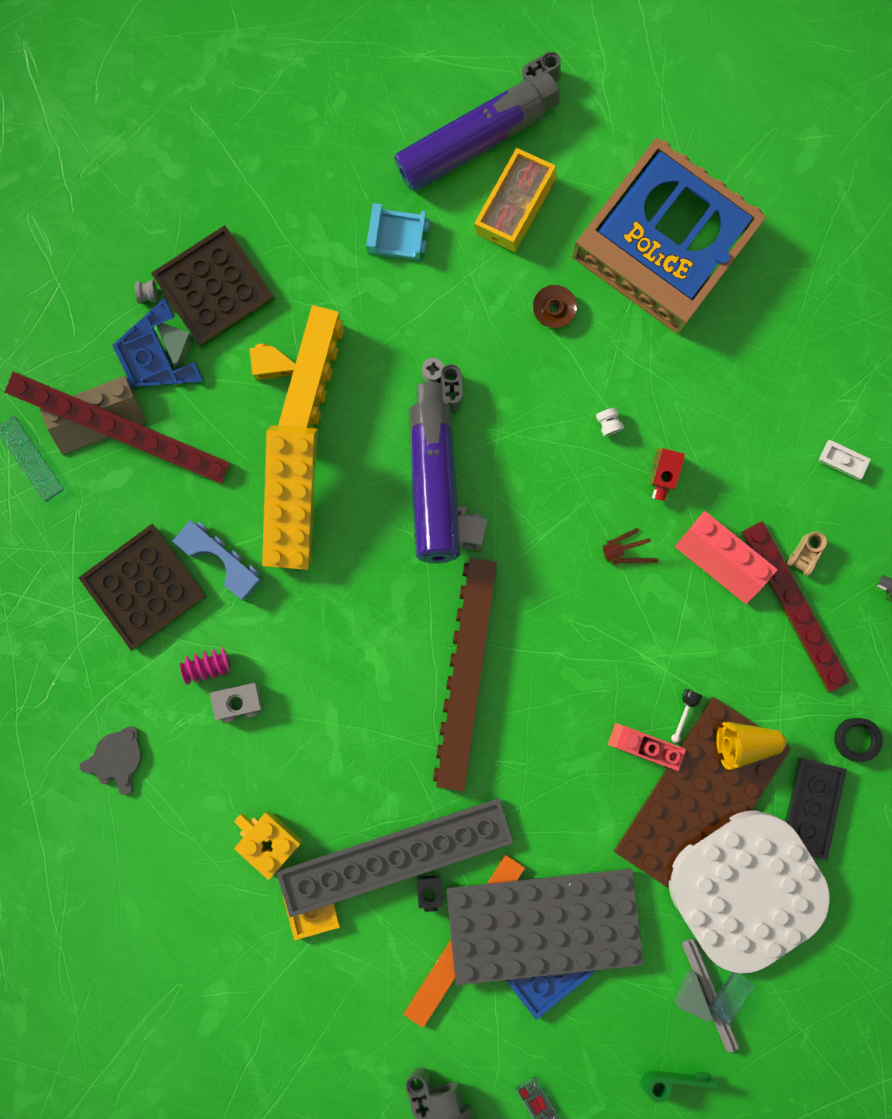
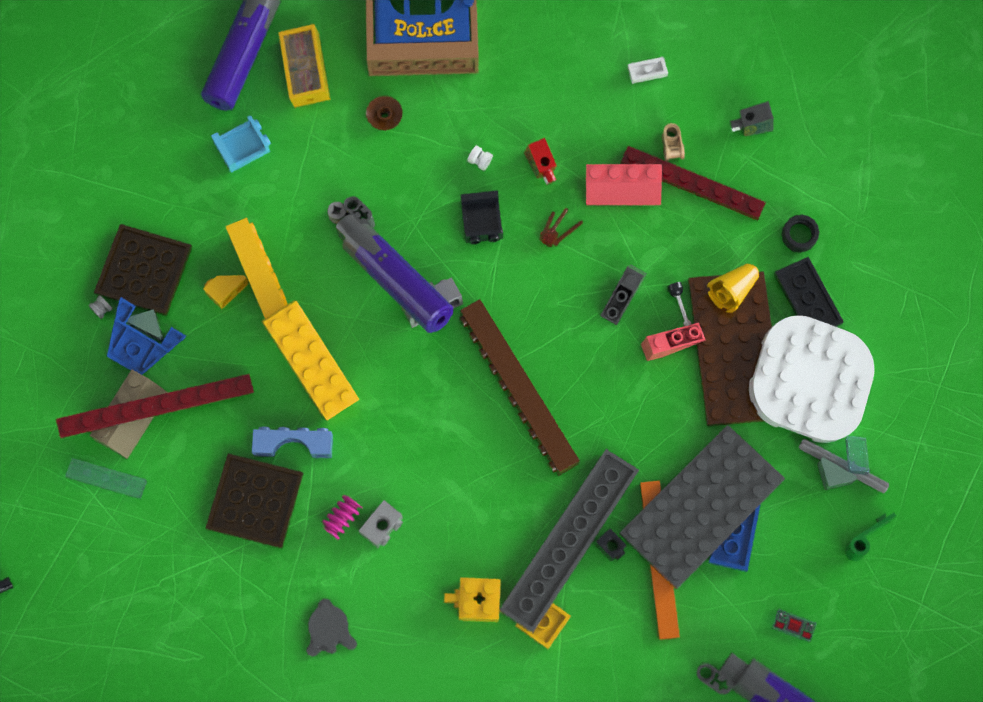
camera: 40 degrees left, 10 degrees down
(564, 481) = (481, 217): none -> black panel
(638, 663) = (623, 294): none -> dark grey slope

